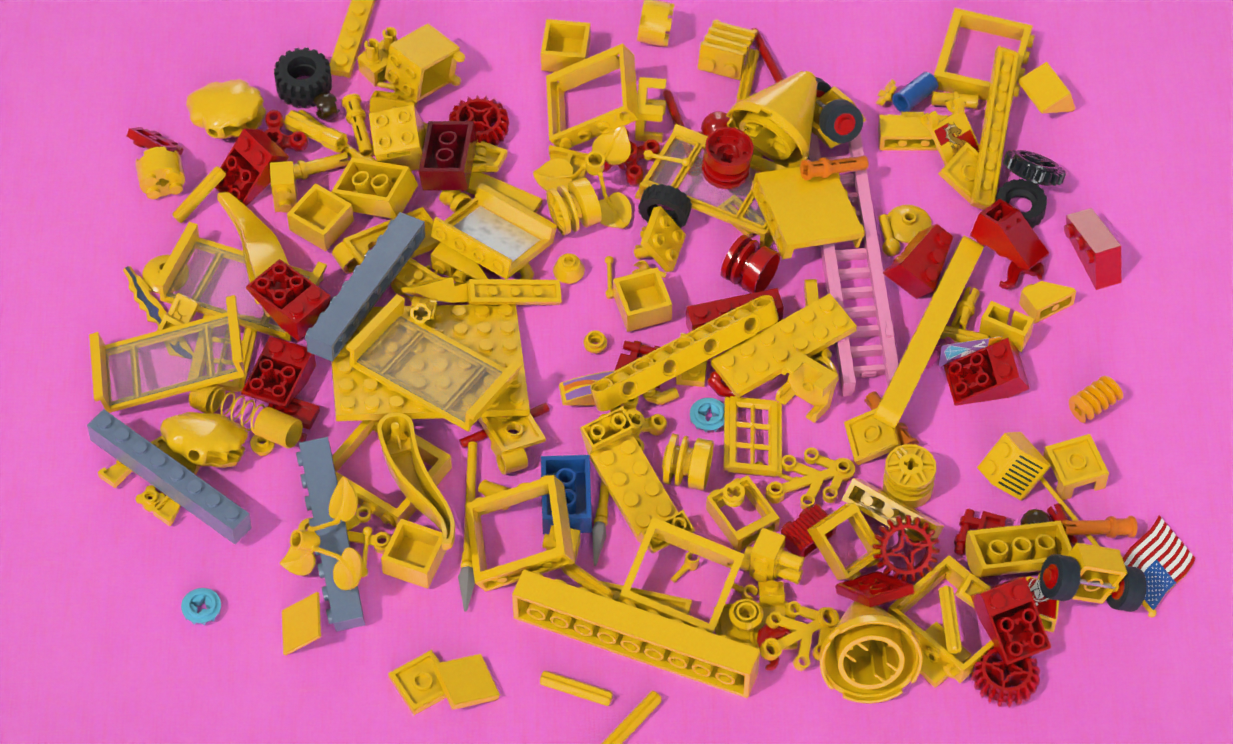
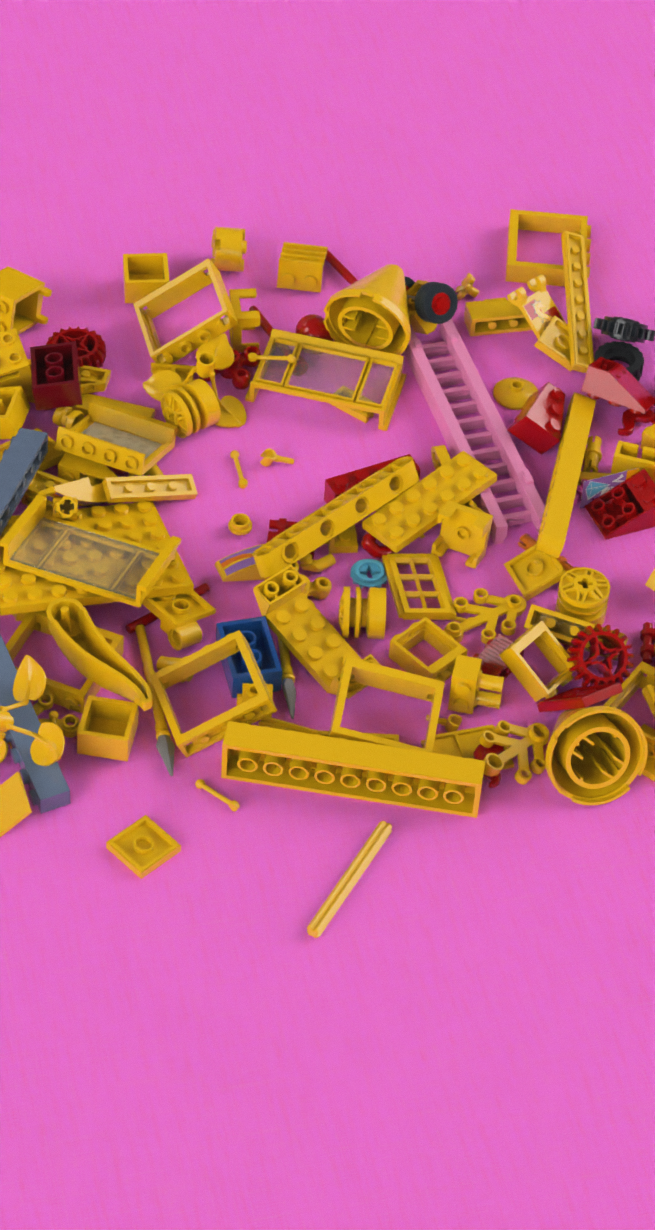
camera: 15 degrees left, 10 degrees down
(466, 681) = (190, 838): yellow tile -> none
(492, 624) = (233, 805): none -> yellow hinge
(568, 269) = (197, 464): yellow cone -> none
(576, 688) = (303, 830): yellow axle -> none
(642, 299) = (279, 480): yellow piece -> none
(661, 240) = (282, 428): yellow plate -> none
(669, 197) = (280, 385): black tyre -> none
(688, 565) = (385, 706): yellow hand -> none
(727, 158) = (333, 346): red wheel -> none
(732, 488) = (415, 628): yellow bush -> none
(745, 565) = (446, 692): yellow tile -> none
(746, 614) = (458, 738): yellow cone -> none
(748, 74) = (327, 284): yellow axle -> none
(750, 264) = (377, 438): red wheel -> none
(771, 592) = (475, 718): yellow plate -> none
(805, 211) = (418, 383): yellow panel -> none
(825, 167) = (429, 344): orange pin -> none
(890, 246) = (506, 412): yellow bar -> none
(915, 92) = (492, 282): blue pin -> none
(940, 98) = (515, 284): yellow pin -> none
(1047, 90) = (618, 266): yellow slope -> none

